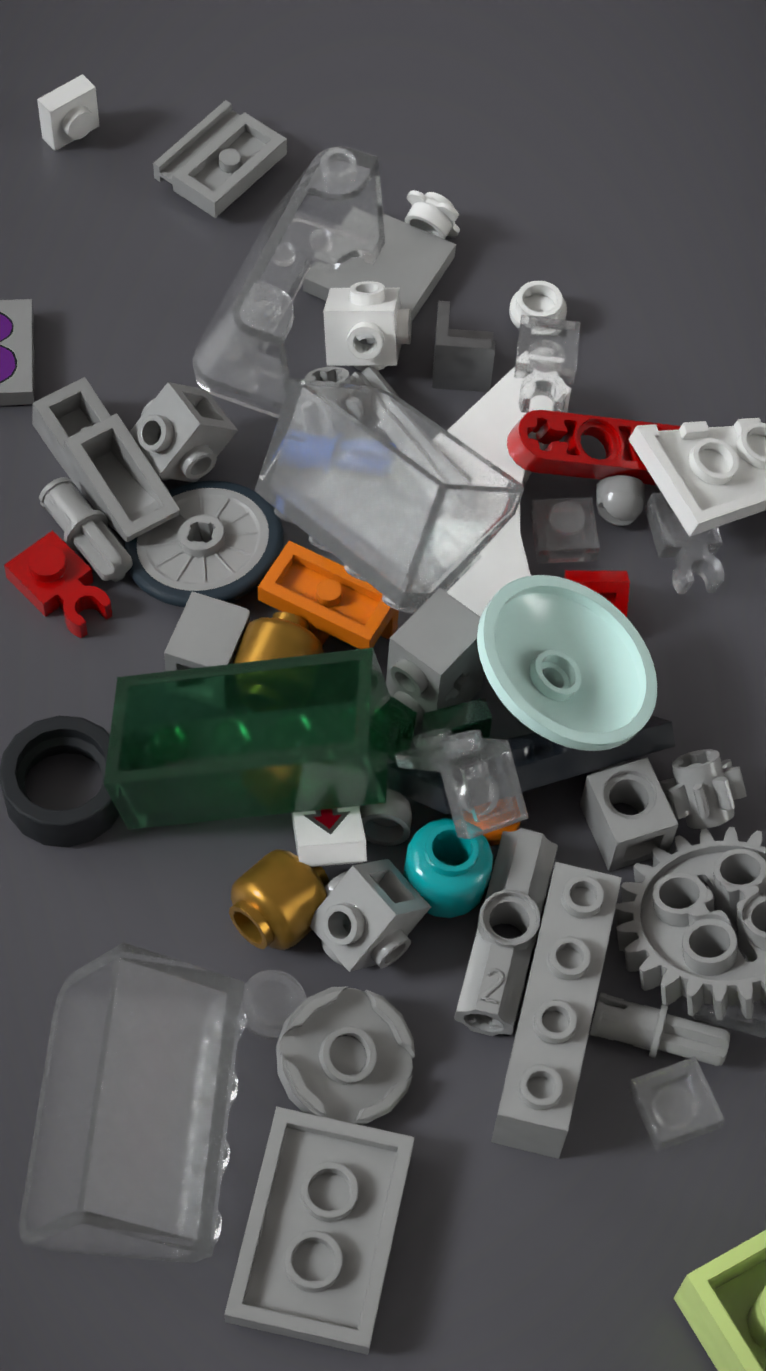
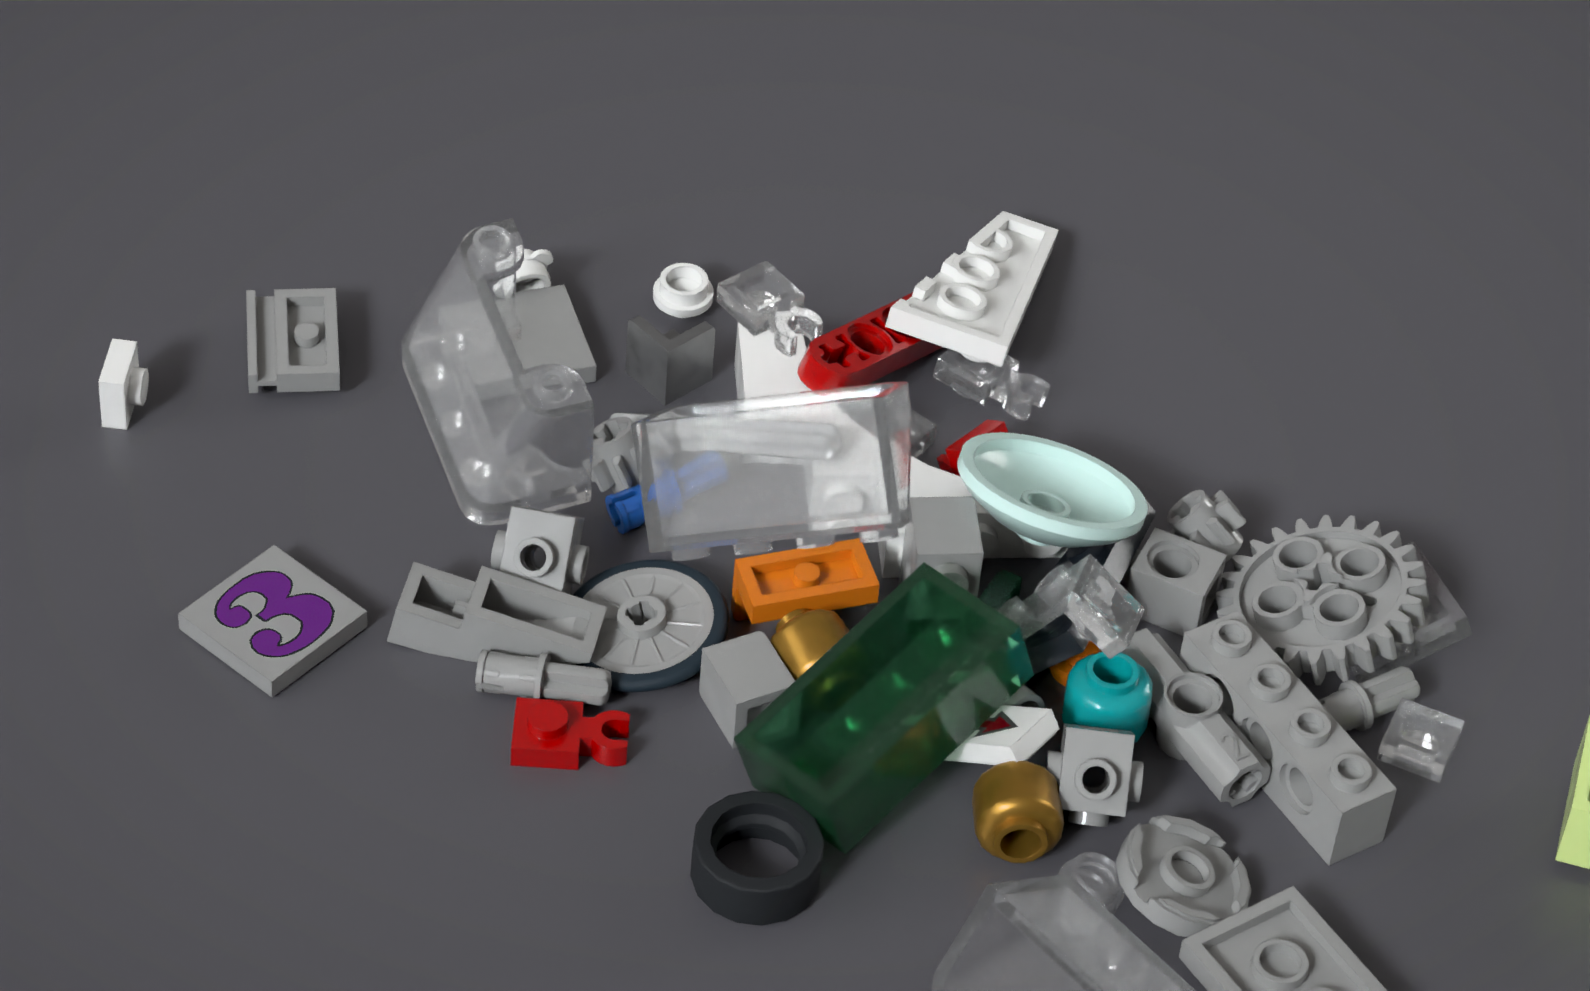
camera: 45 degrees left, 15 degrees down
(365, 326) = (602, 368): white brick -> none
(620, 499) = (919, 378): light grey hinge -> none

